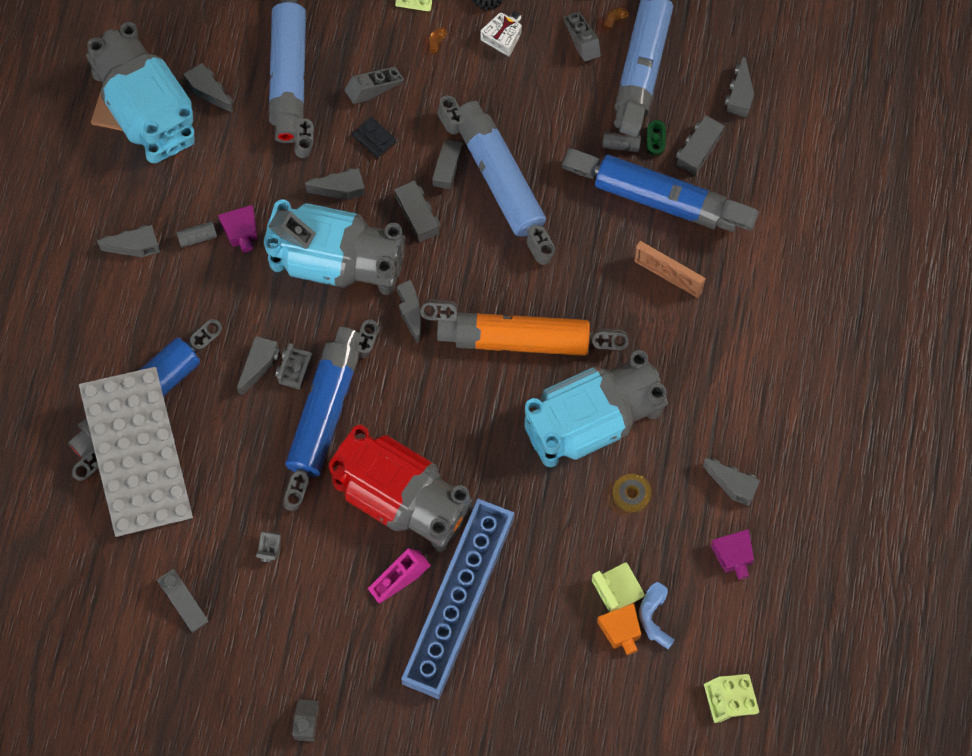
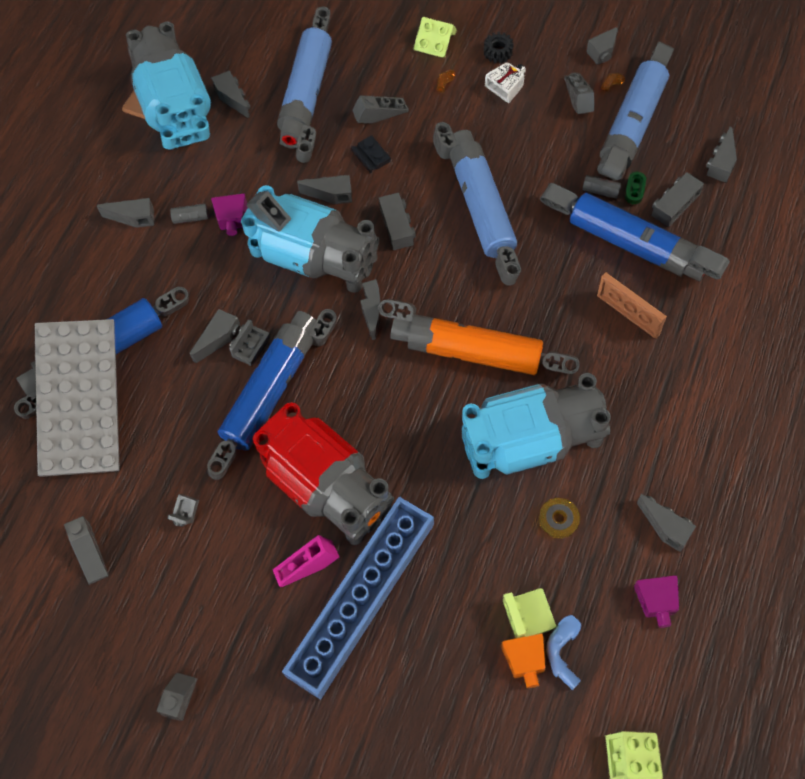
camera: 15 degrees right, 5 degrees down
(447, 164) = (432, 184): dark grey slope -> none

